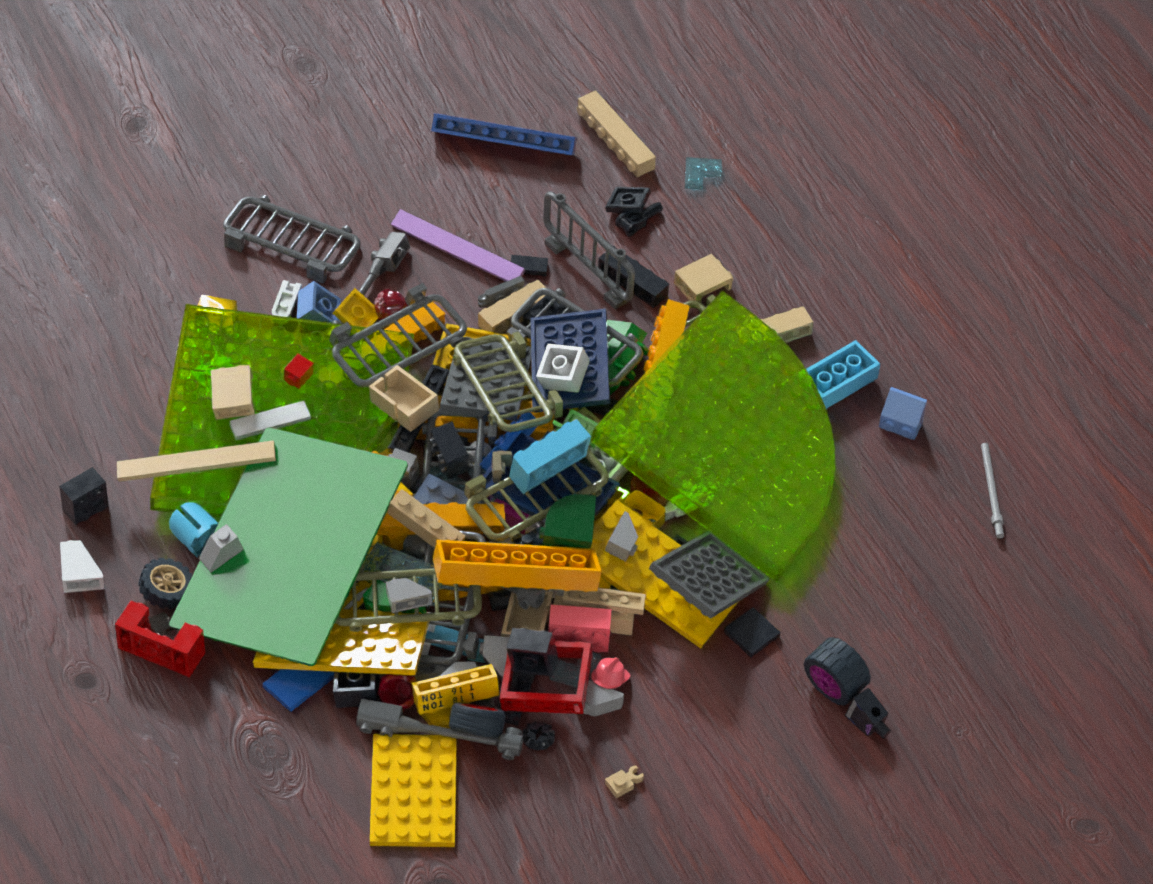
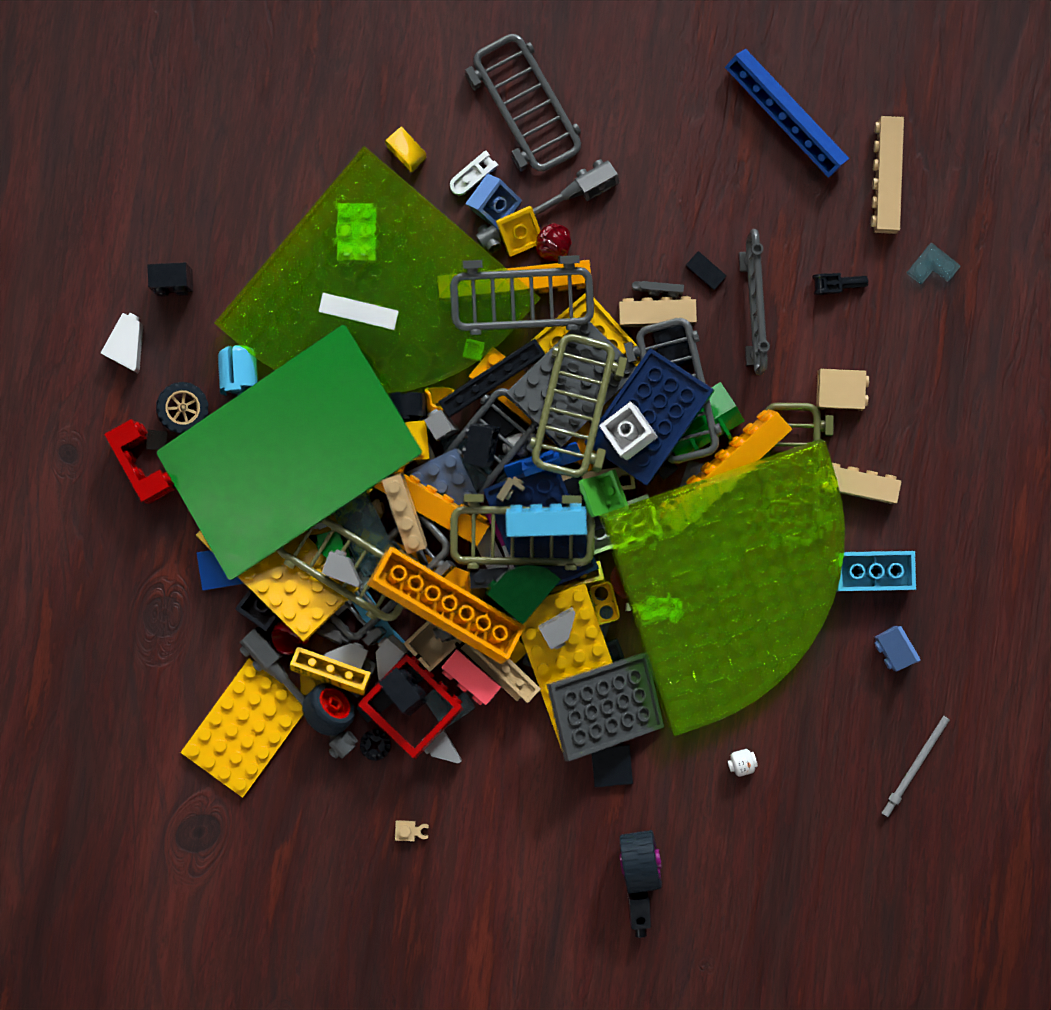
camera: 35 degrees right, 35 degrees up
(196, 461) = (268, 317): tan tile -> none
(220, 548) = (233, 418): light grey slope -> none
(232, 392) = (340, 266): tan panel -> none
(298, 371) = (410, 280): red brick -> none
(405, 398) = (478, 368): tan piece -> none
(456, 246) = (657, 212): lavender tile -> none
(610, 673) = (467, 733): coral piece -> none
(628, 200) = (841, 259): black tile -> none
(647, 285) = (784, 345): black brick -> none
(855, 563) = (742, 762): none -> white head

